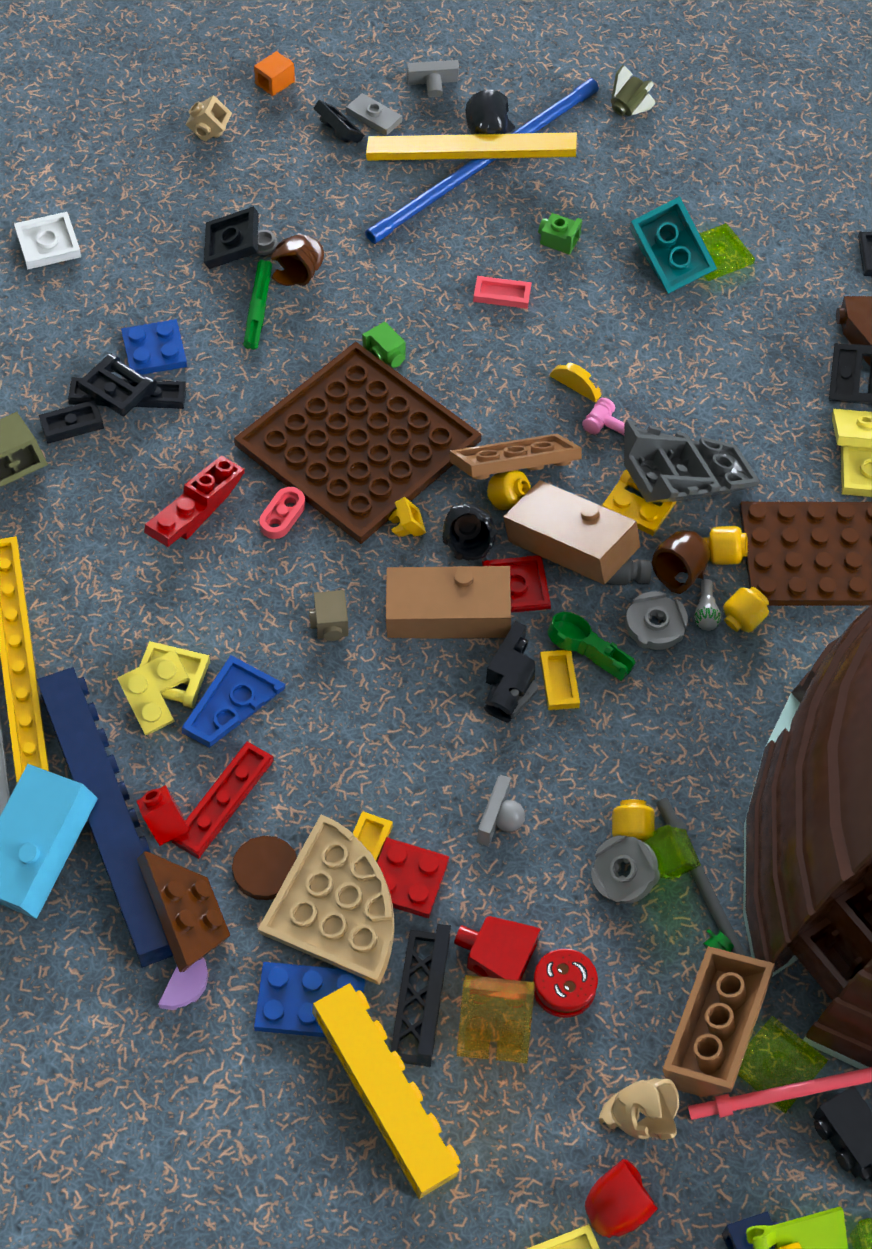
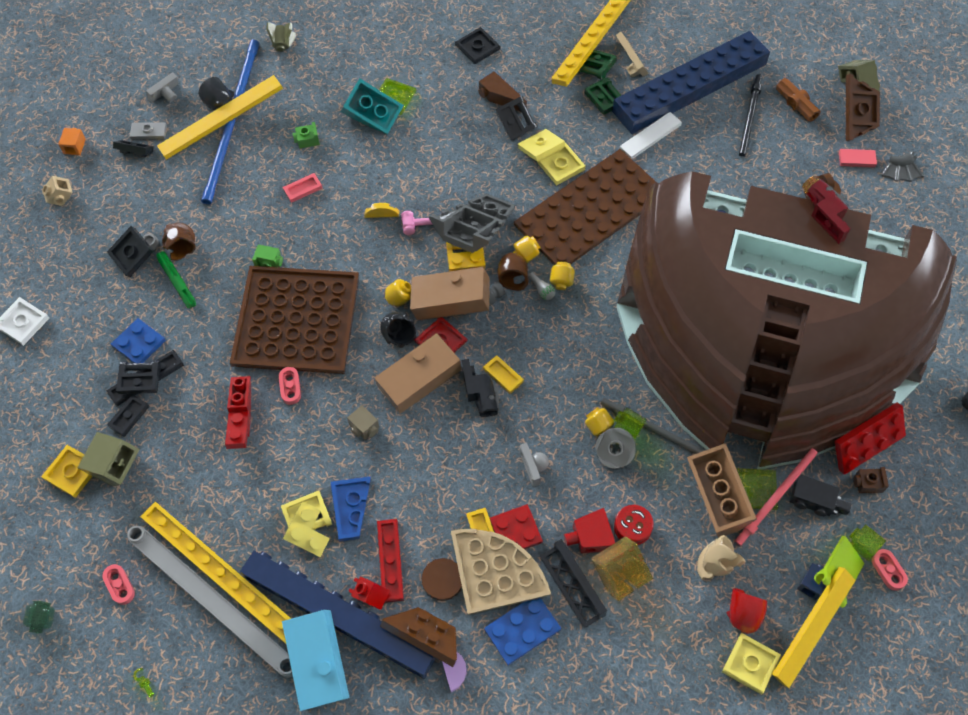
camera: 35 degrees left, 5 degrees up
(385, 1090) = (599, 645): yellow brick -> none
(409, 519) = (359, 342): yellow tile -> none
(515, 455) = (387, 272): medium nougat plate -> none
(575, 634) = (492, 346): green piece -> none
(656, 636) = (528, 320): light grey plate -> none
(719, 941) = (685, 452): green plate -> none

